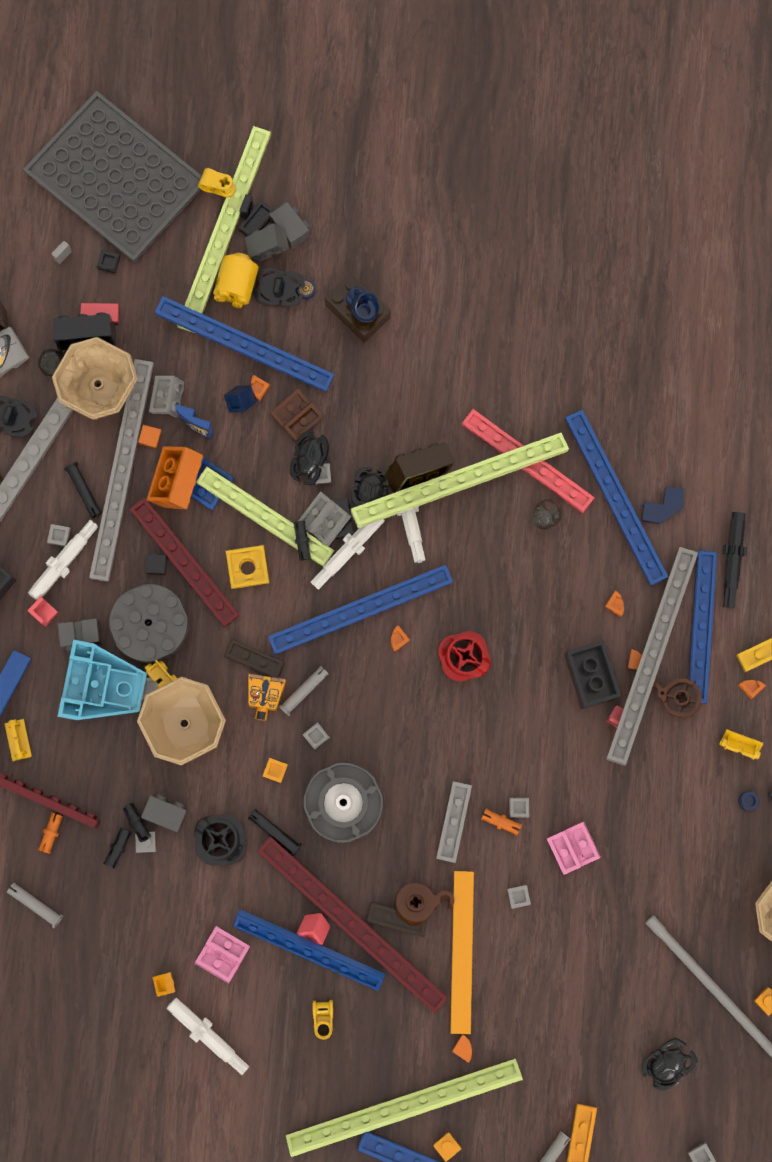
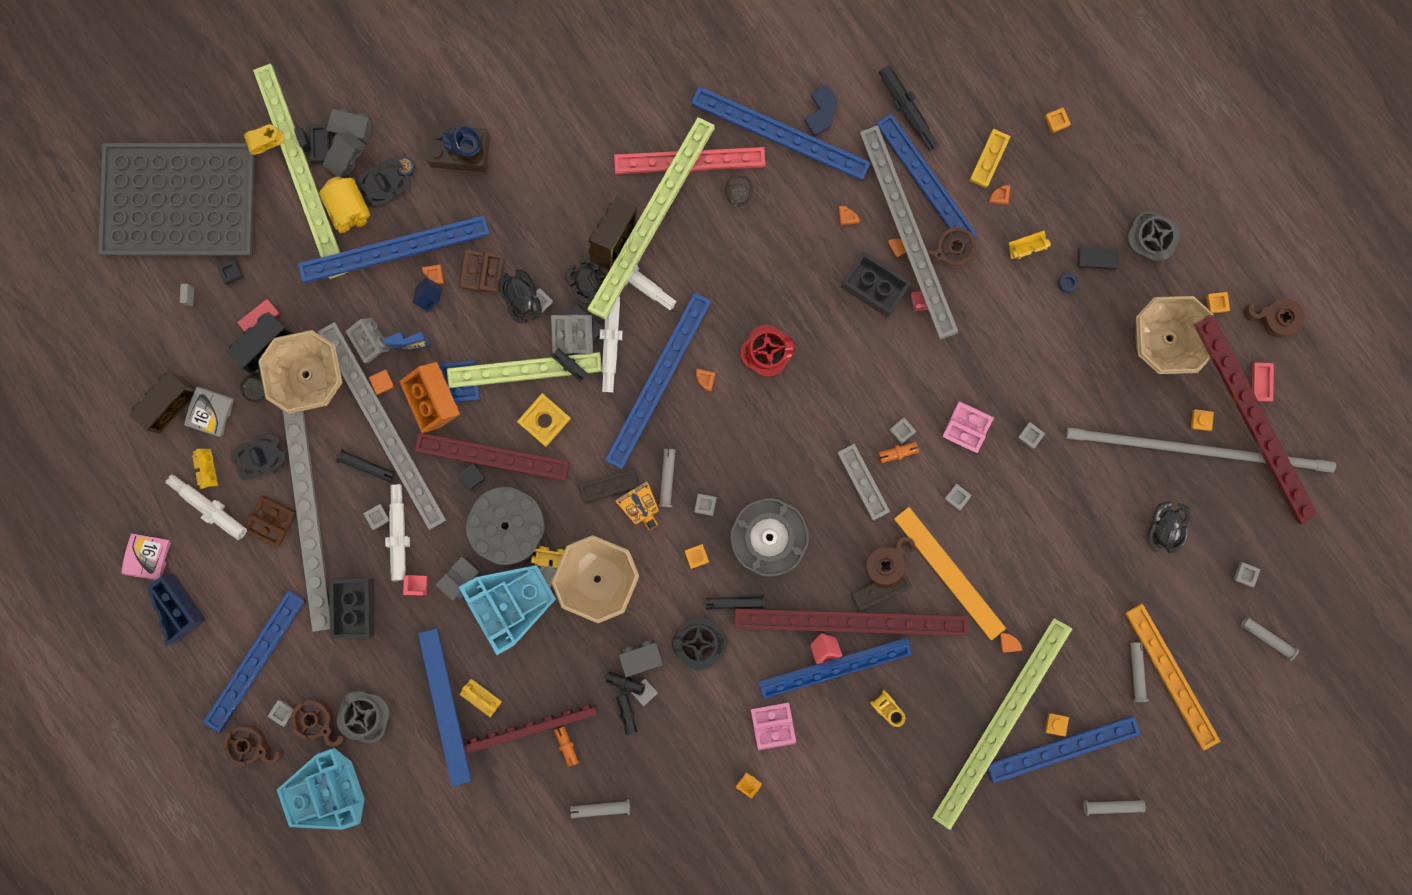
camera: 35 degrees left, 5 degrees up
(201, 1030) = (805, 795): white piece -> none
(618, 897) = (1031, 435): none -> light grey plate

